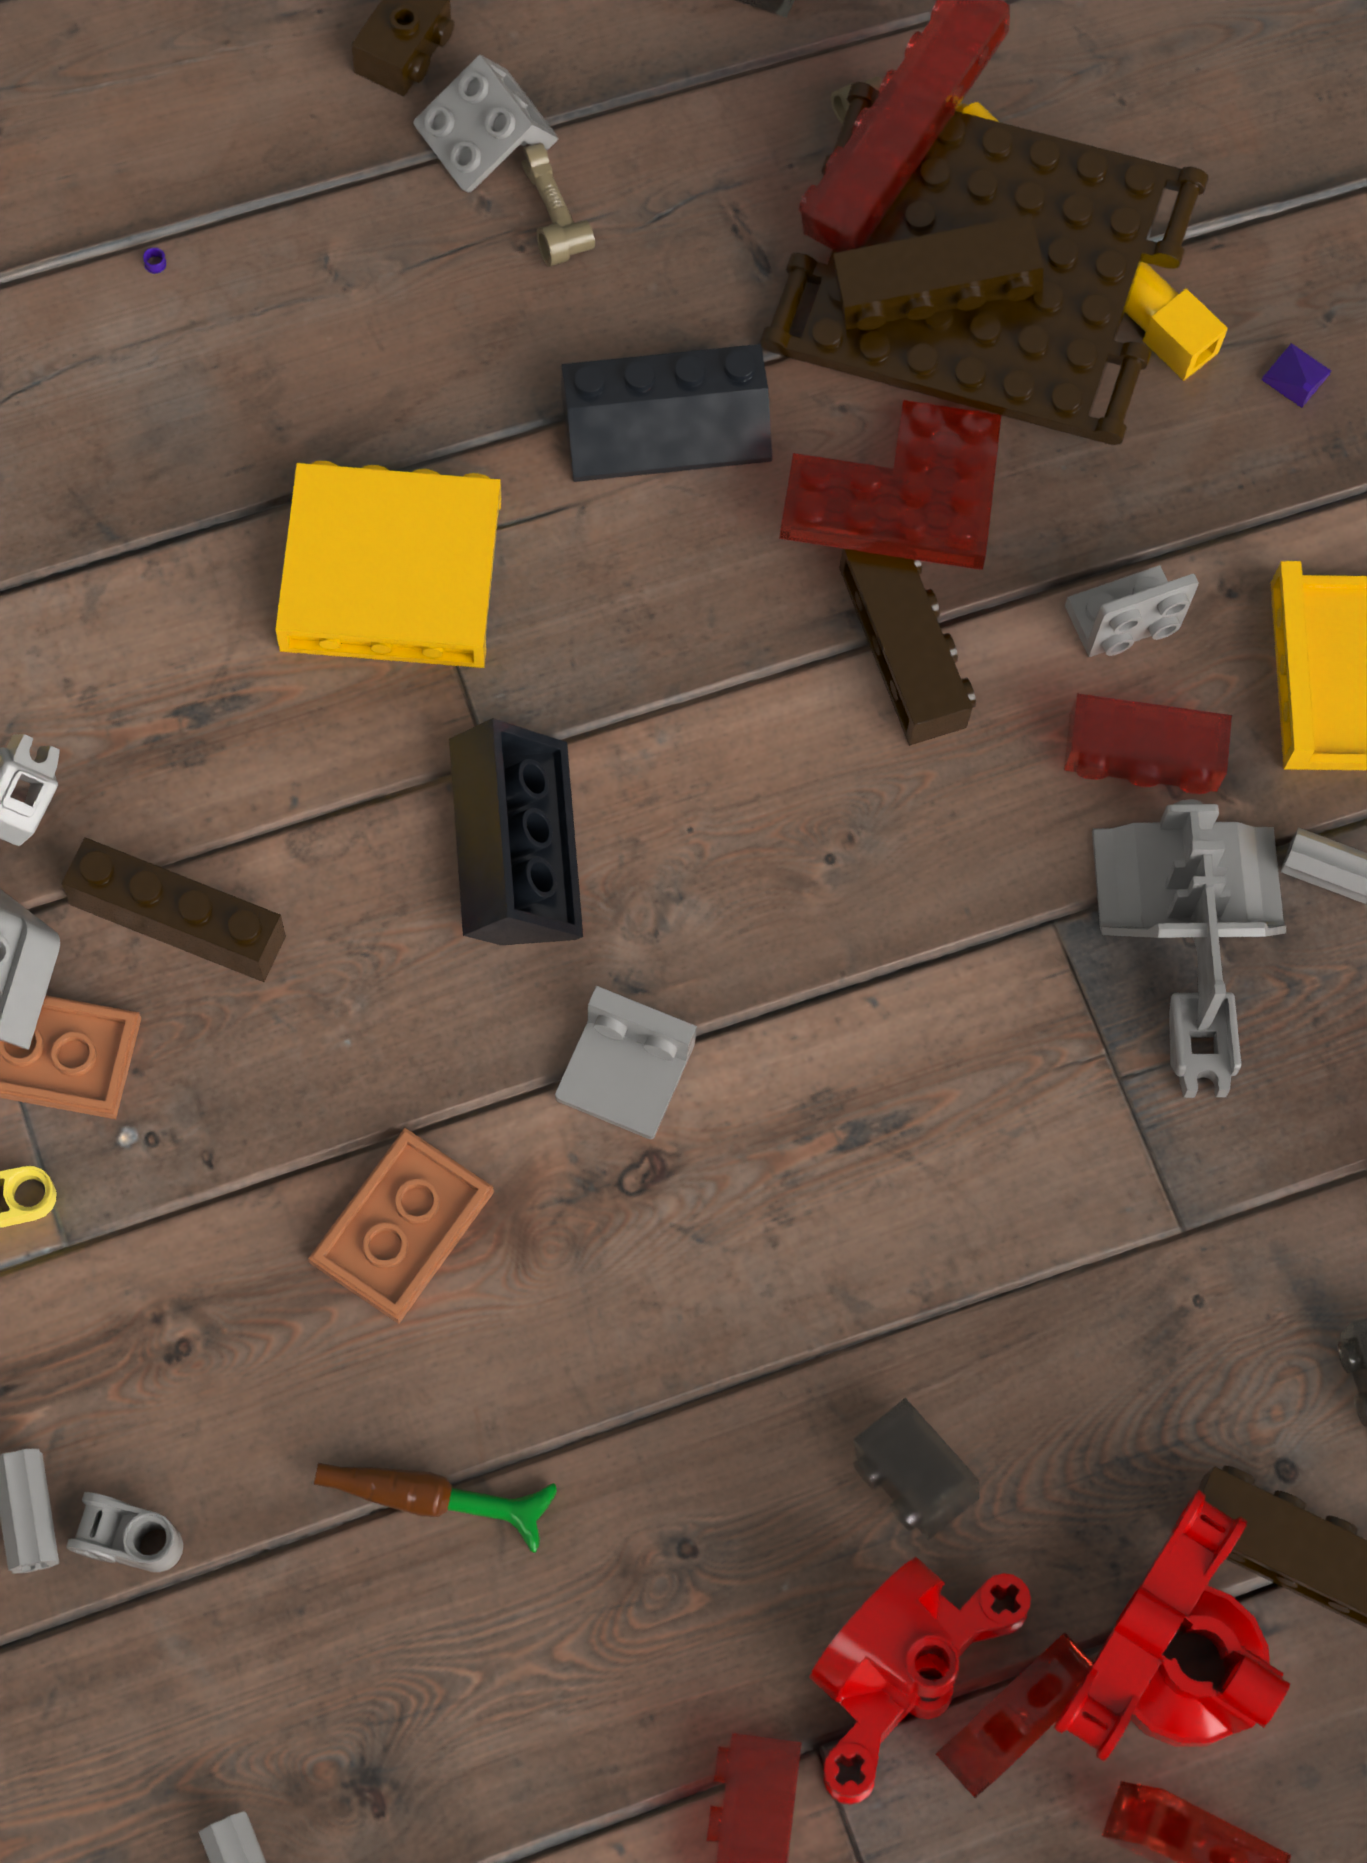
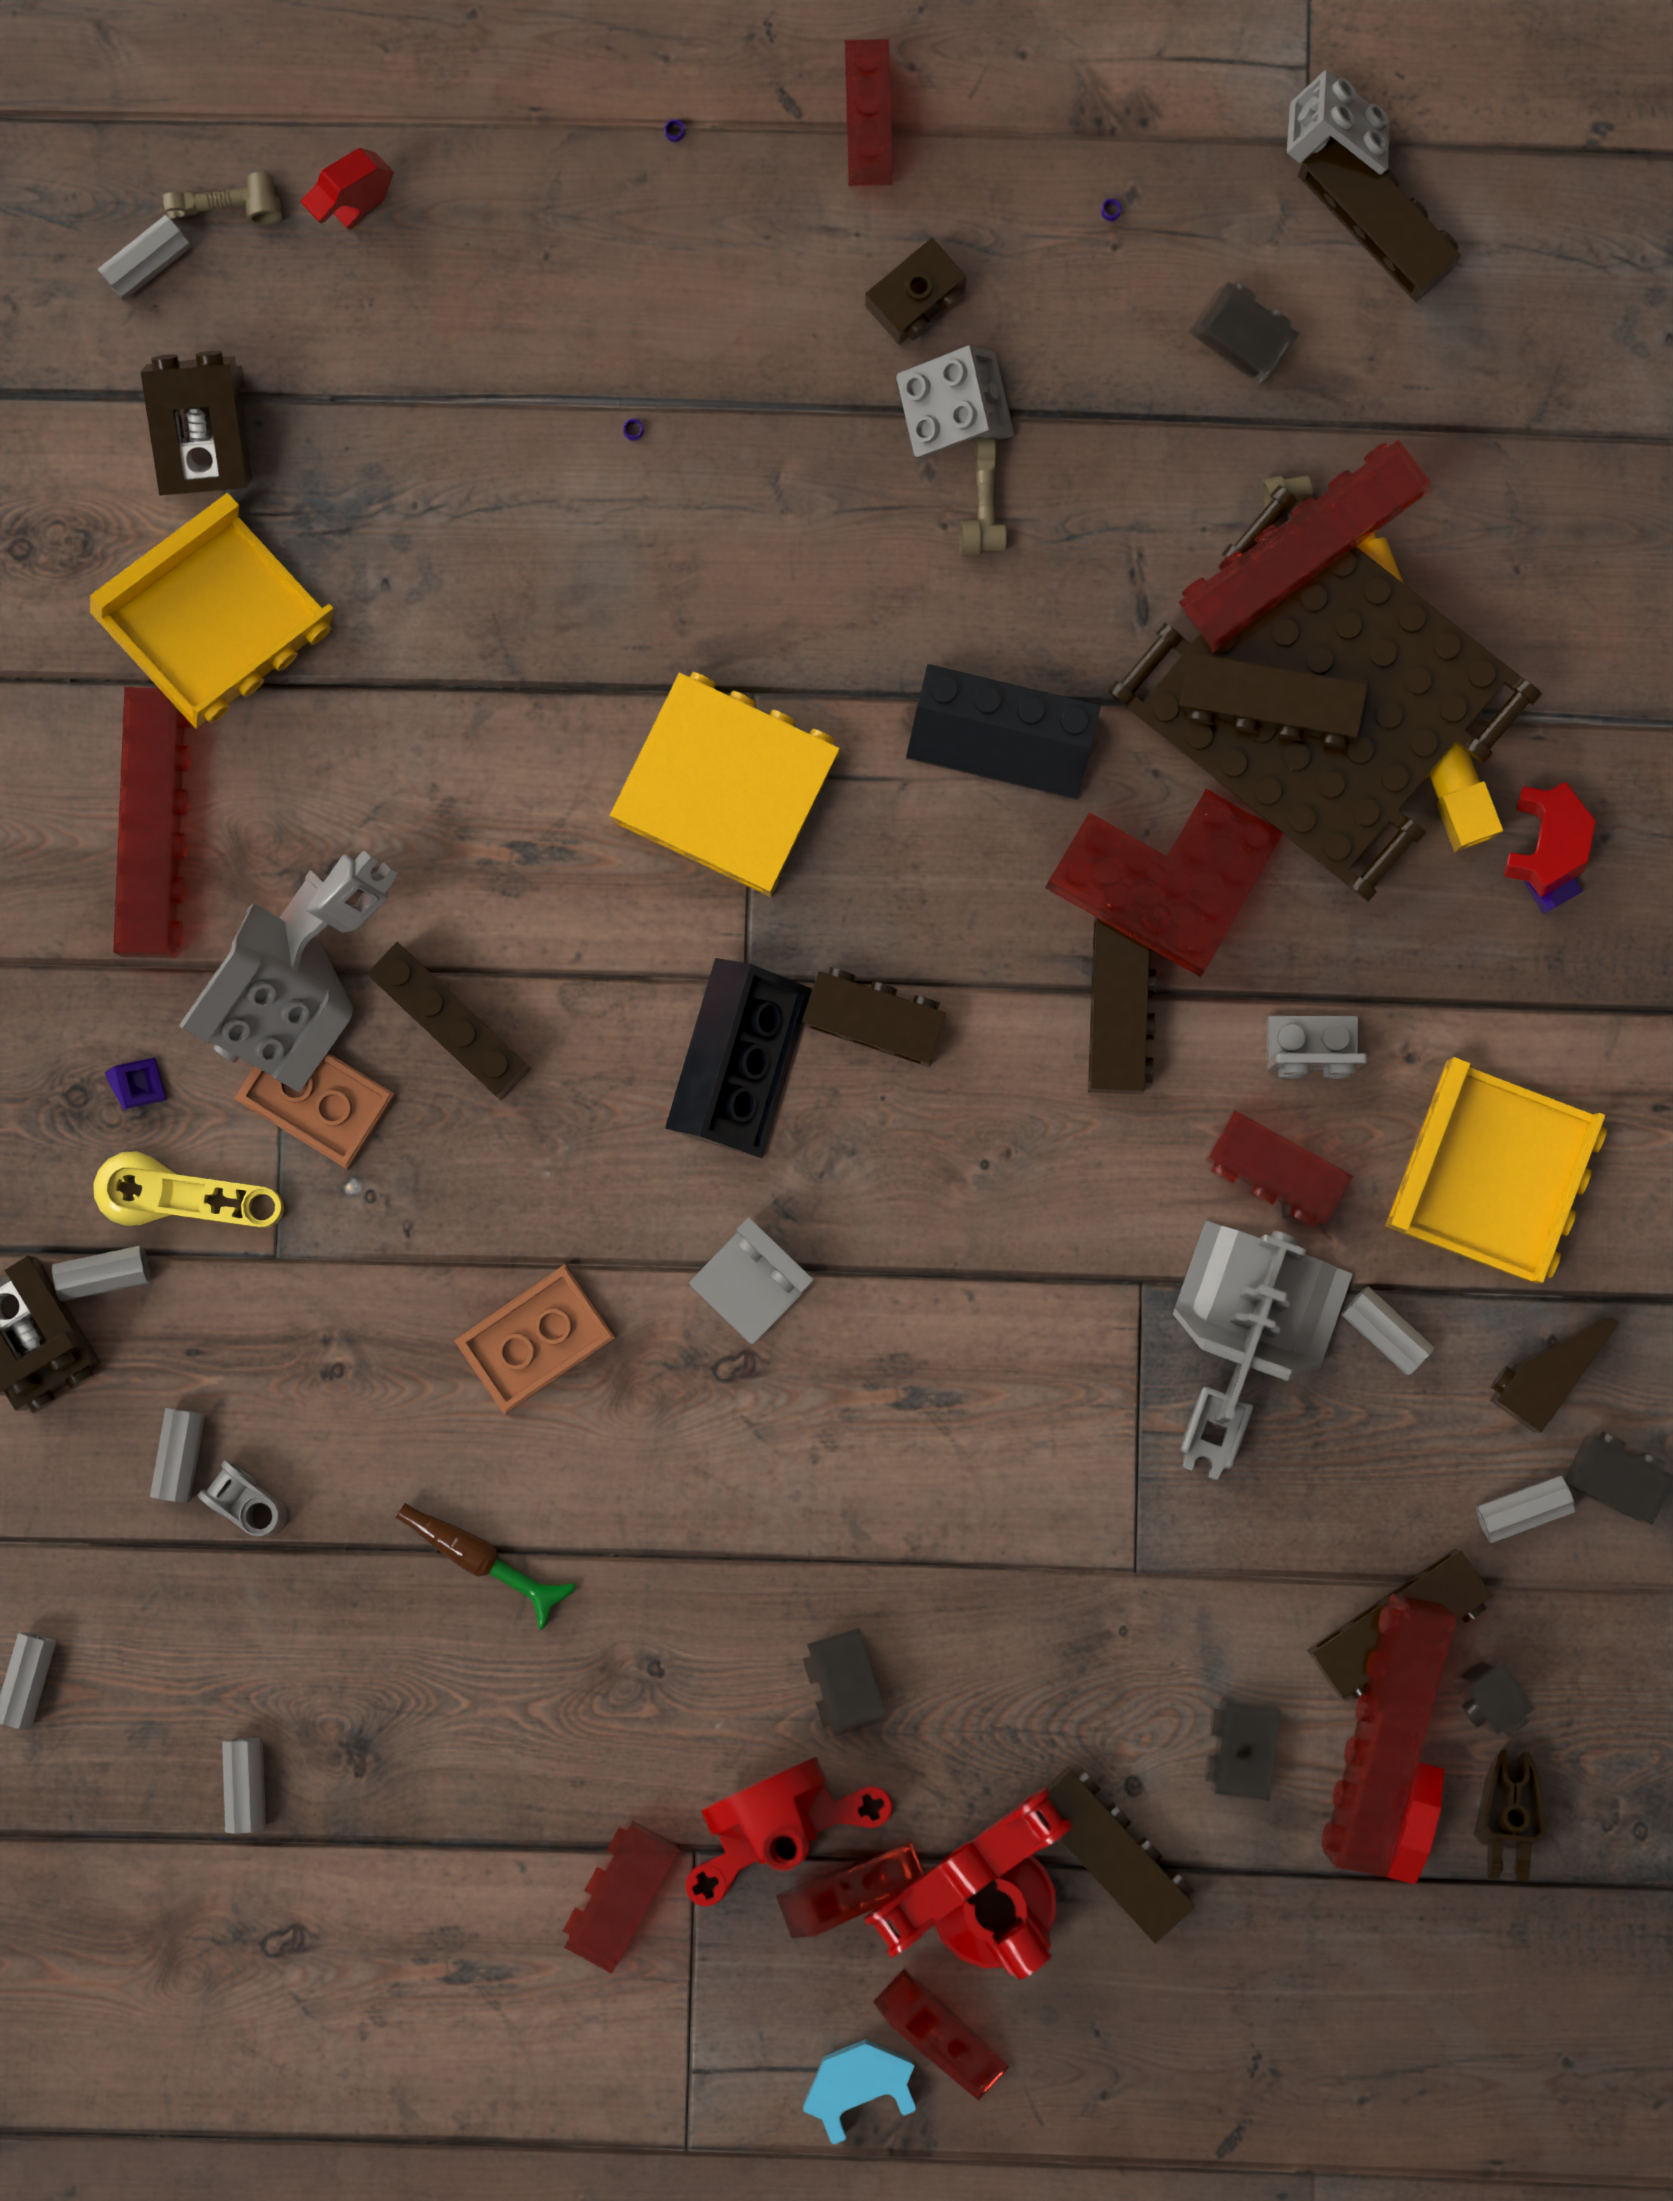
camera: 30 degrees right, 15 degrees up
(648, 743) = (874, 1016): none -> dark brown brick
(1288, 321) = (1561, 842): none -> red piece

